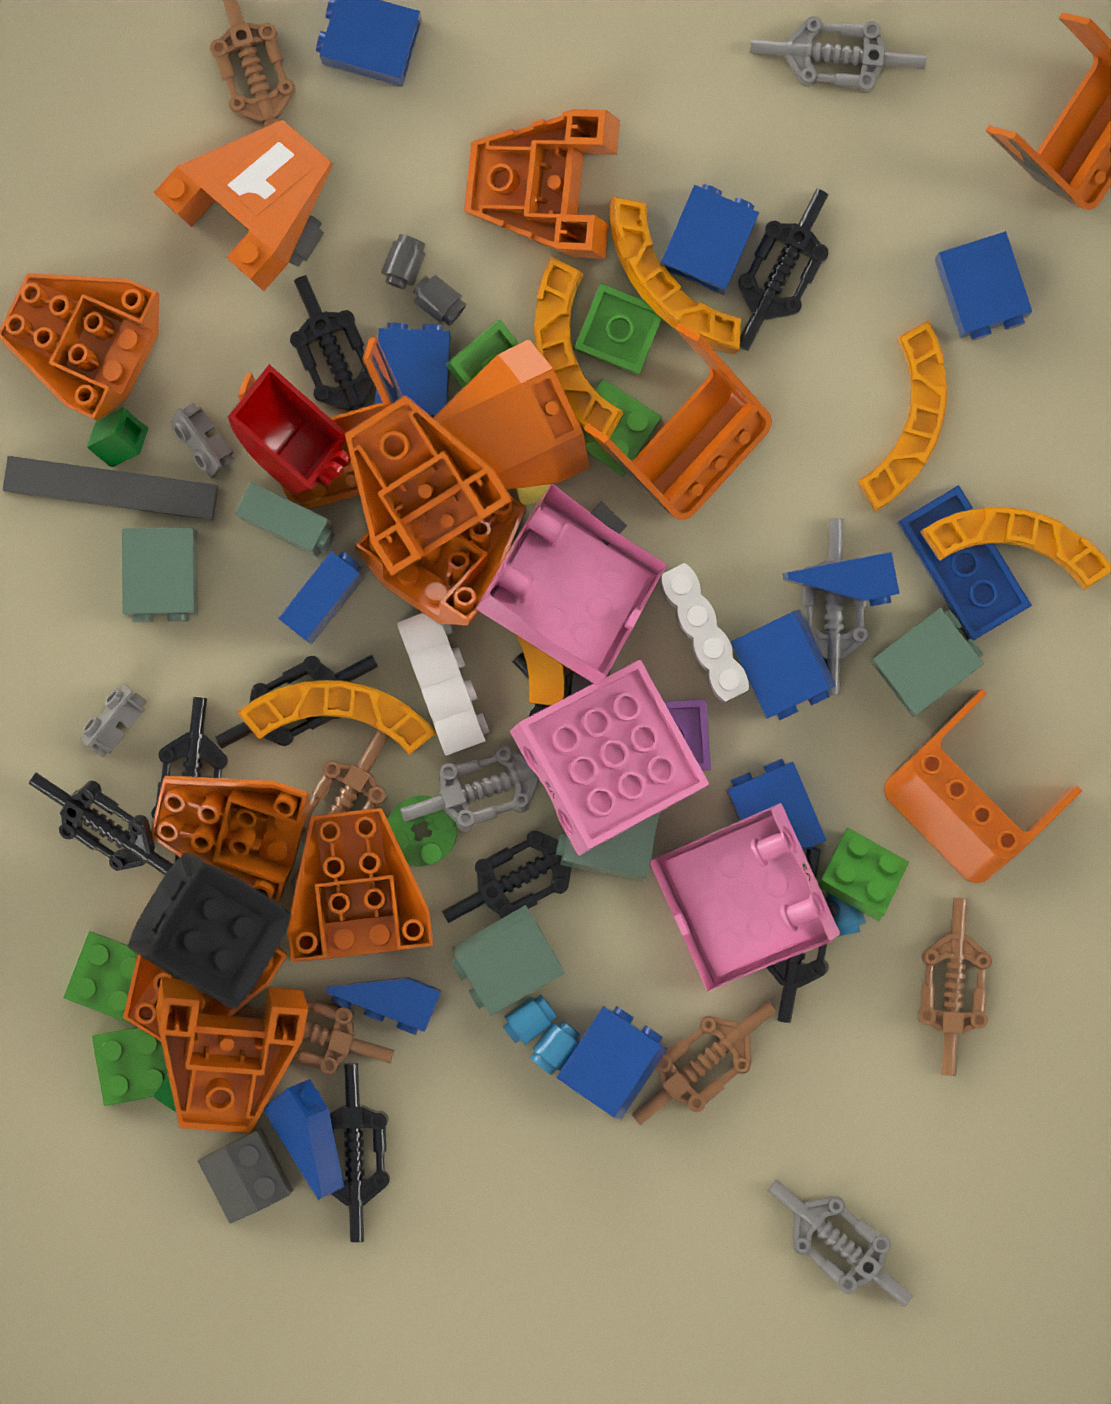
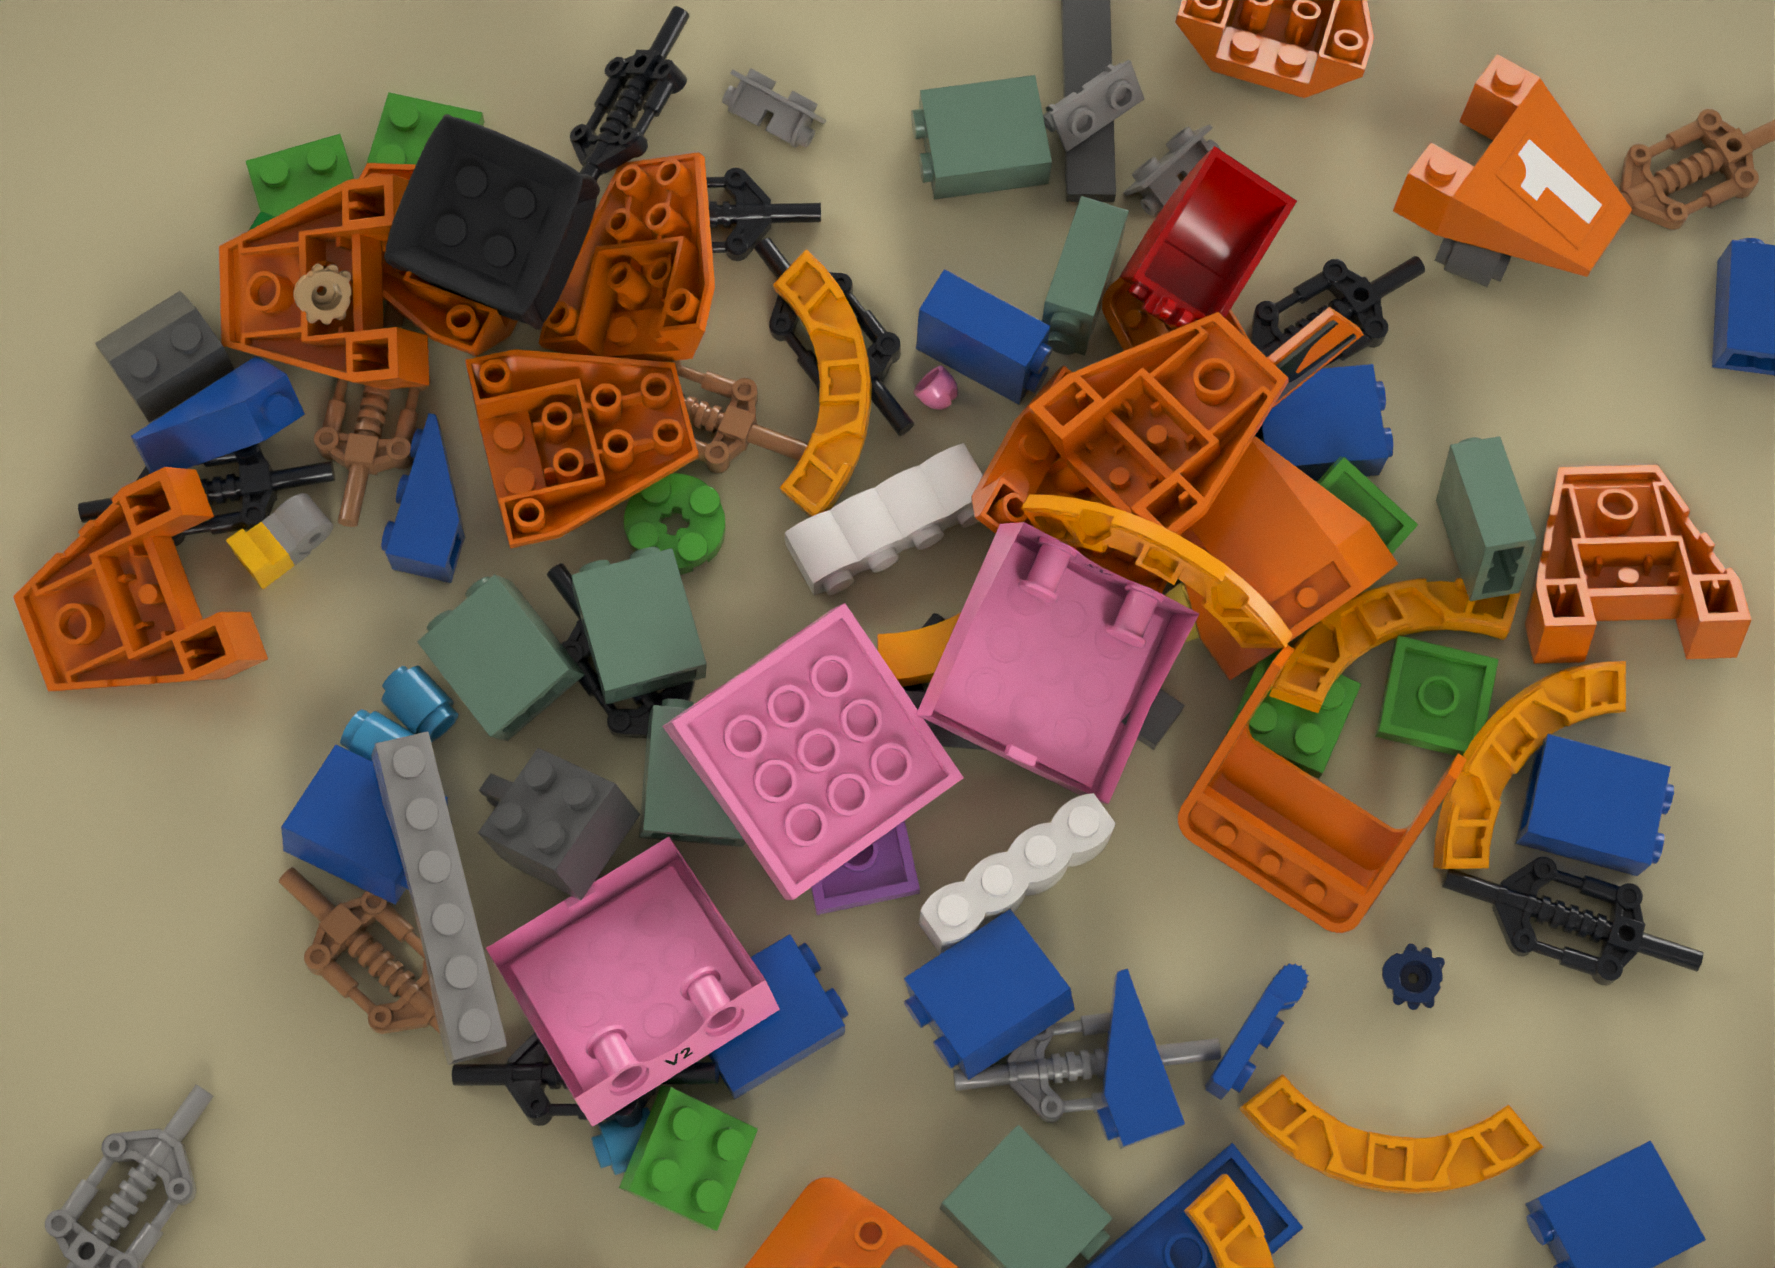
camera: 75 degrees right, 15 degrees down
(117, 437) = (1159, 63): green panel -> none
(141, 475) = (1096, 106): none -> light grey hinge
(235, 1055) = (330, 302): none -> tan animal
(347, 635) = (937, 389): none -> bright pink hinge
(397, 1103) = (281, 539): none -> leg
(403, 261) = (1471, 392): dark grey brick -> none
(436, 1215) = (121, 602): none -> orange wedge
(439, 300) = (1426, 446): dark grey brick -> none
(454, 799) = (725, 553): light grey bar -> none
(499, 864) = (638, 624): none -> sand green brick
(504, 273) = (1485, 518): none -> sand green brick
(522, 498) = (1166, 555): none -> light orange tile
(629, 935) = (557, 822): none -> dark grey hinge
(675, 1016) = (440, 898): none -> light grey arch
(816, 382) = (1424, 966): none -> dark blue animal
(827, 490) = (1258, 1028): none -> blue hinge

